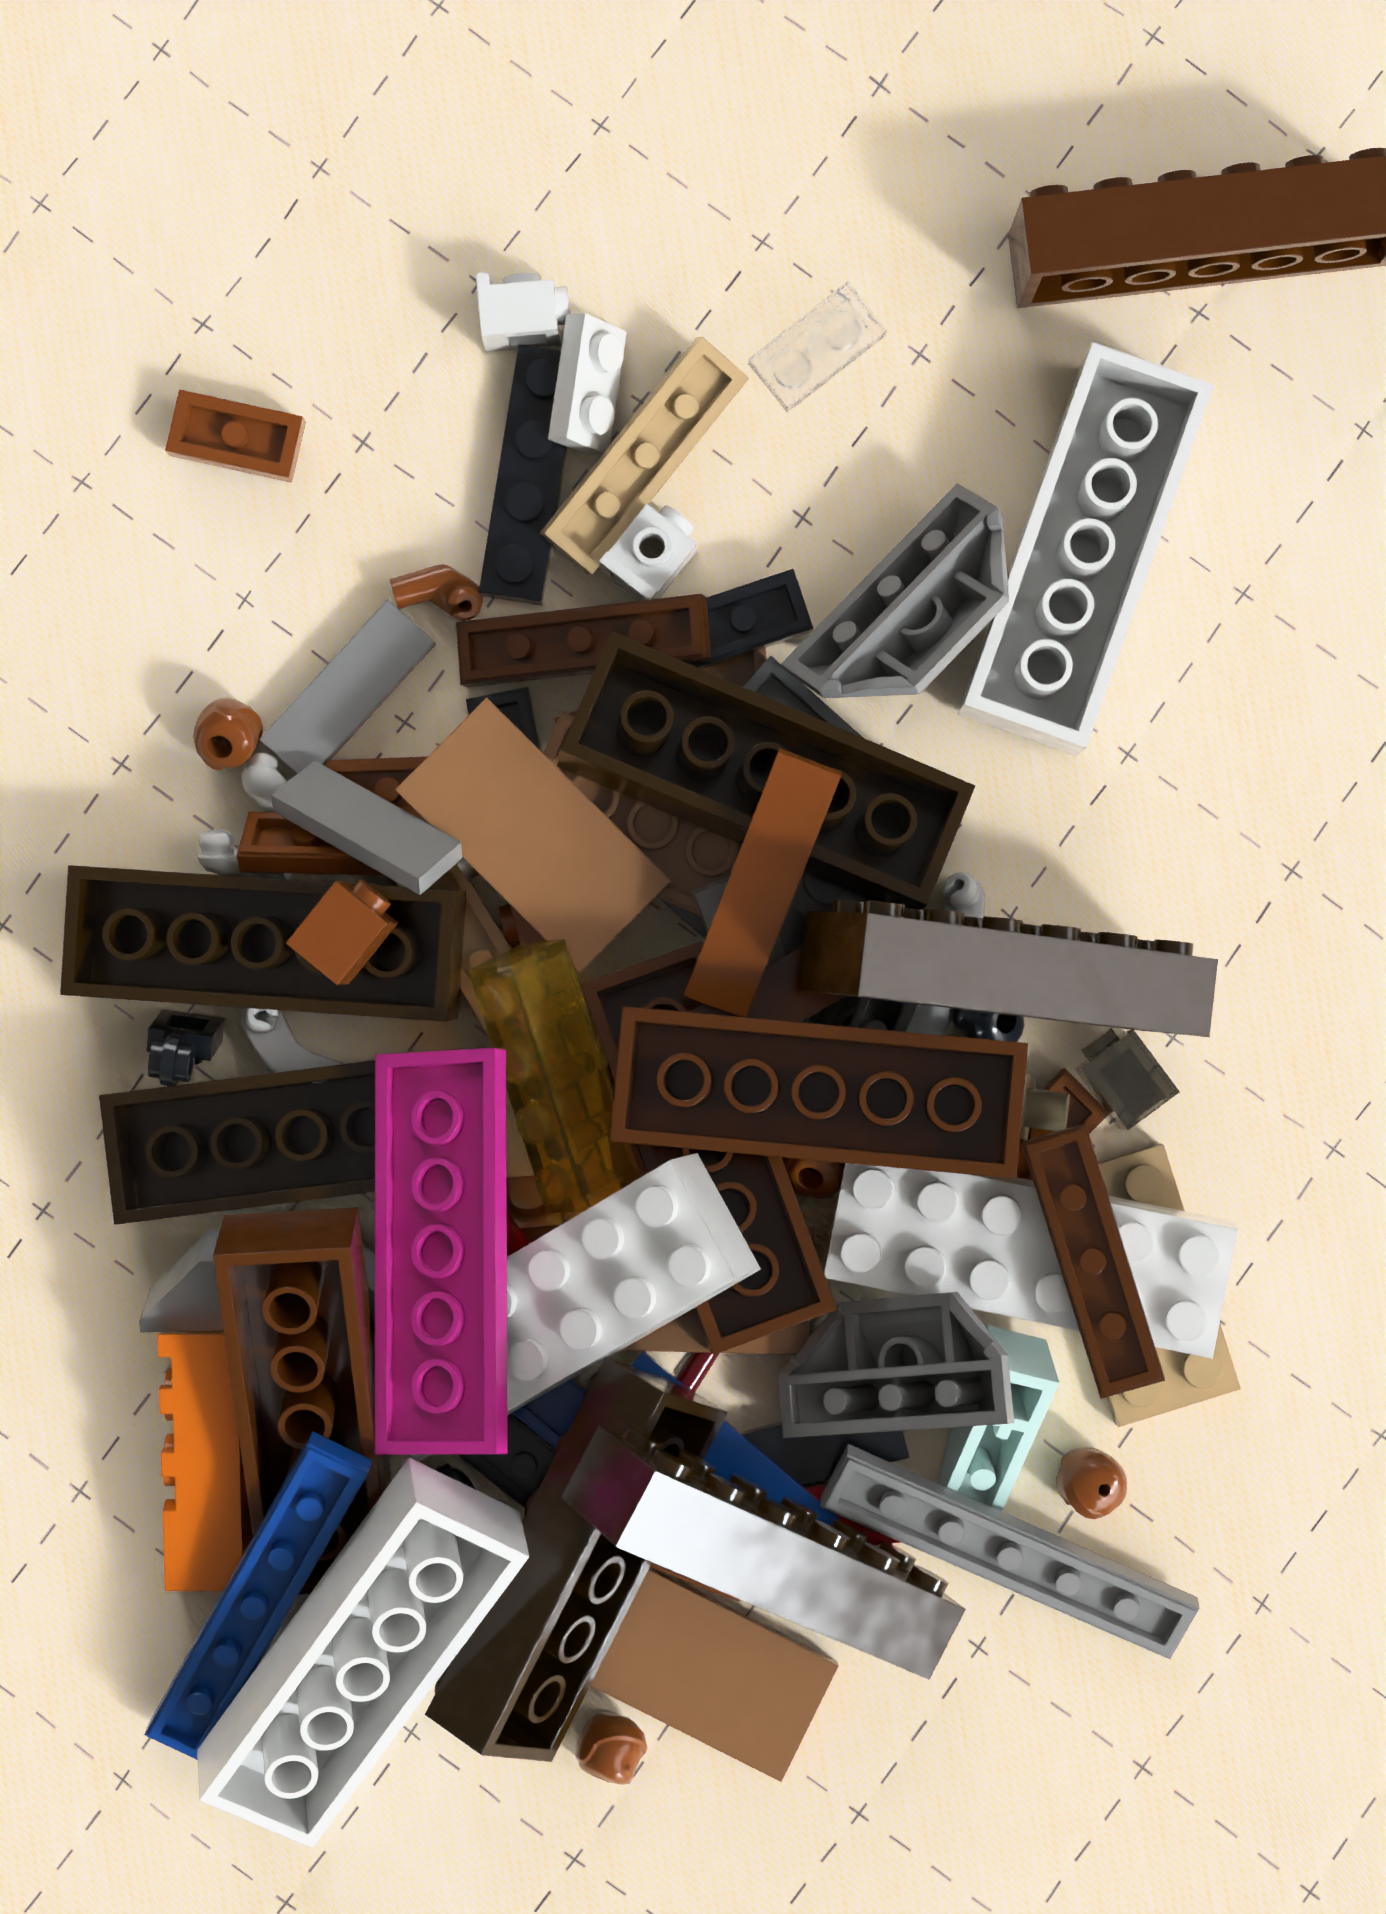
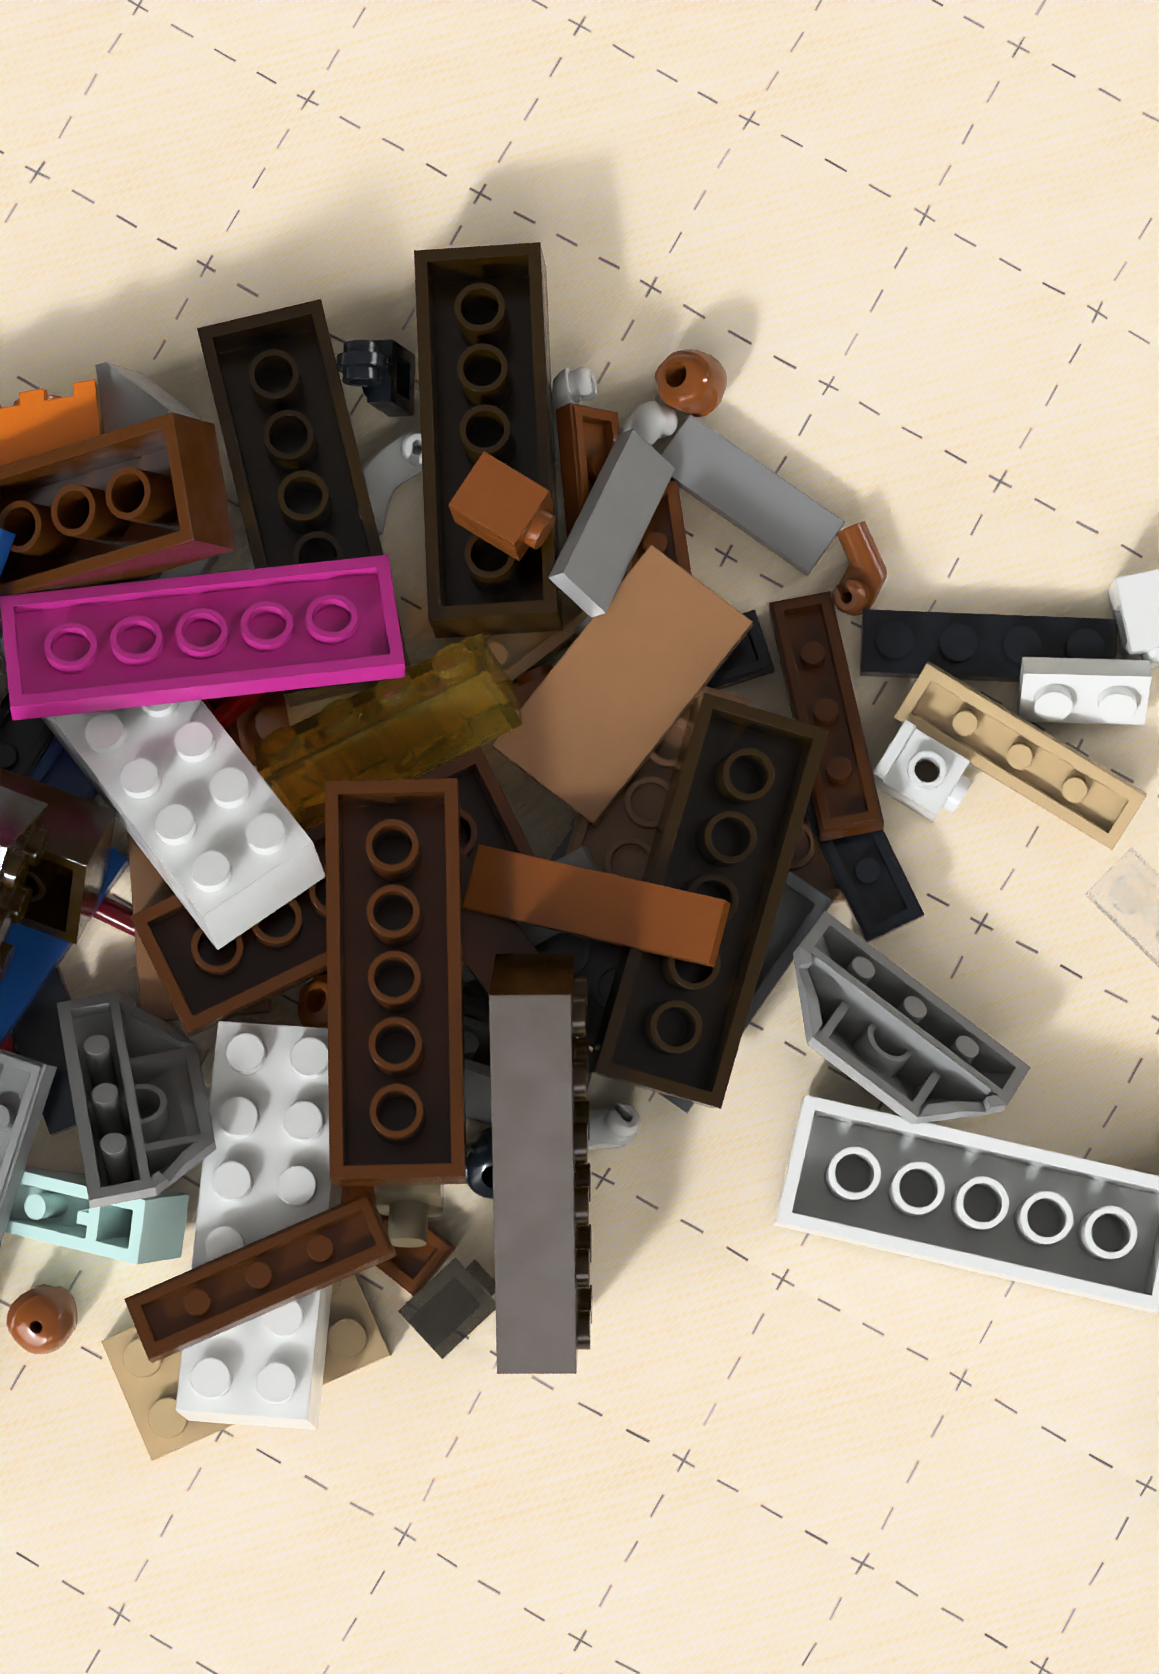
camera: 85 degrees right, 5 degrees down
(235, 436) = (987, 355): dark orange plate -> none

